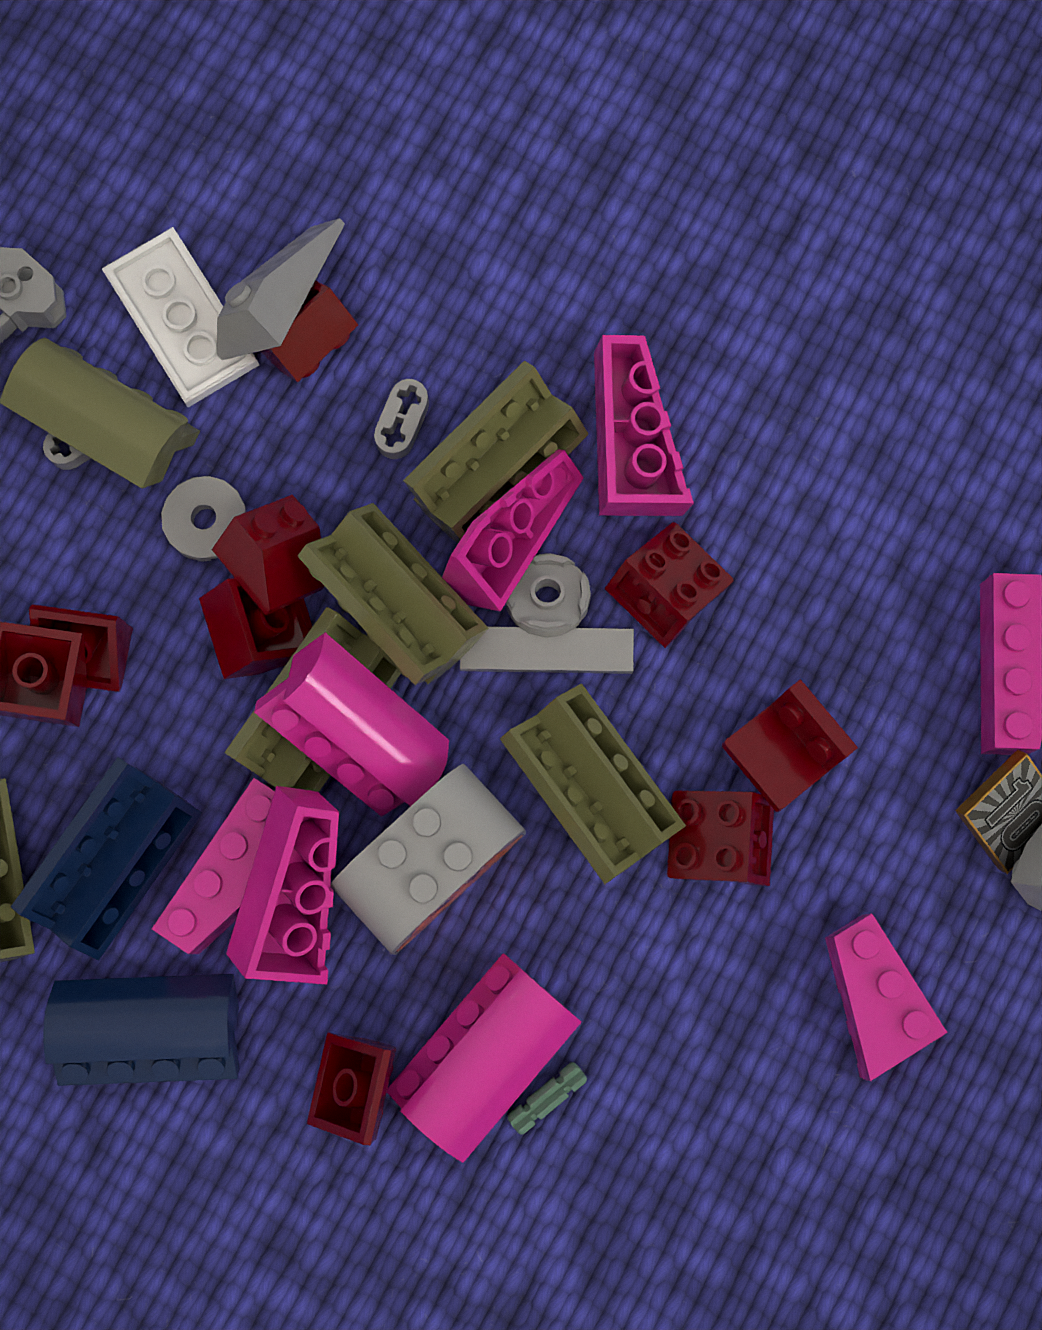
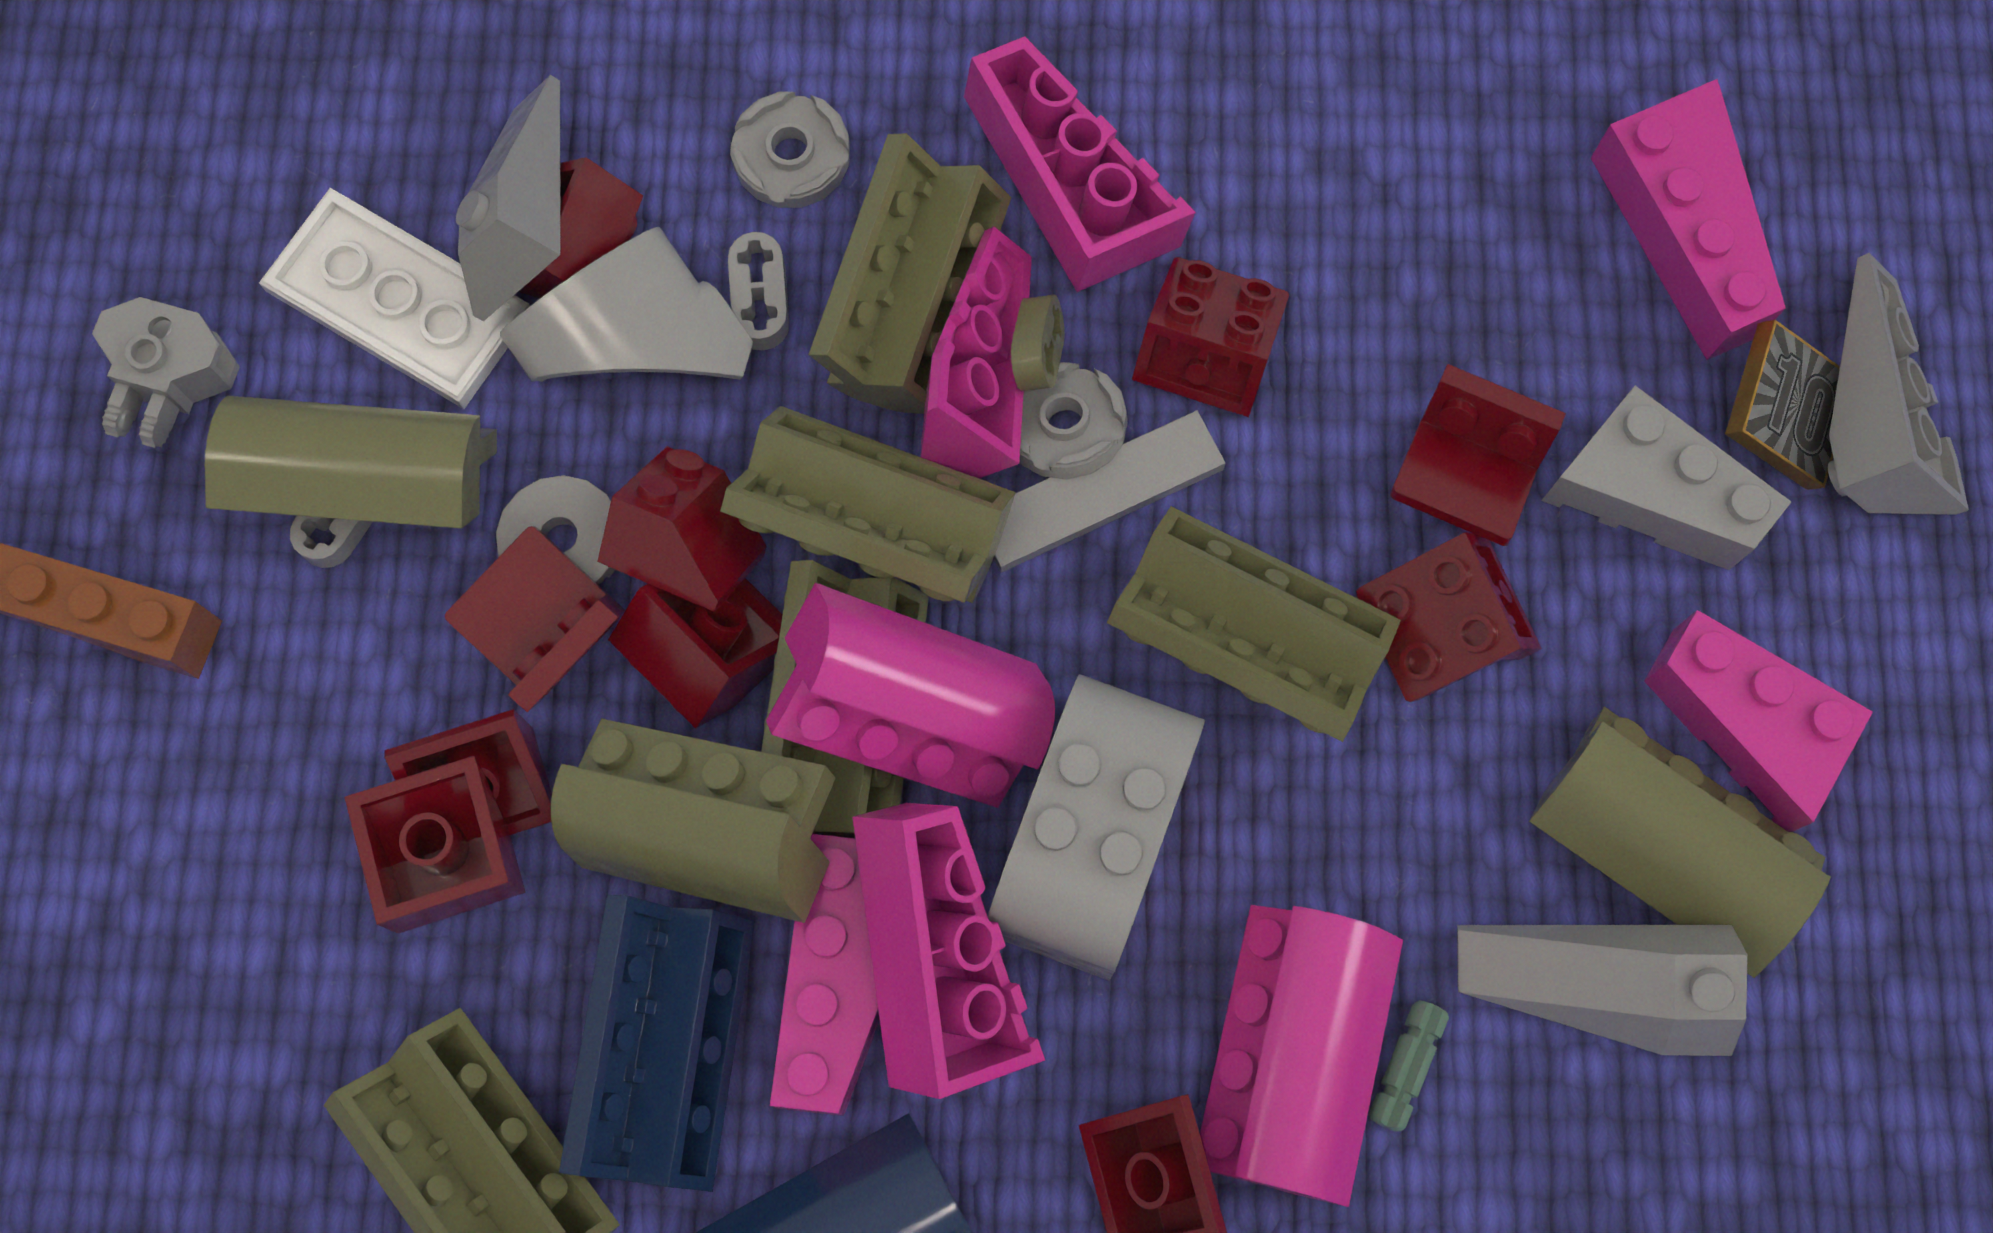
camera: 30 degrees left, 5 degrees down
(162, 562) = (534, 615): none -> dark red bracket
(192, 735) = (695, 818): none -> olive brick
(313, 401) = (630, 315): none -> light grey panel
(472, 358) = (798, 180): none -> light grey tile
(553, 538) = (1037, 343): none -> olive beam
(706, 1118) = (1628, 983): none -> light grey wedge
(787, 1050) = (1681, 839): none -> olive brick
(904, 822) = (1670, 484): none -> light grey wedge

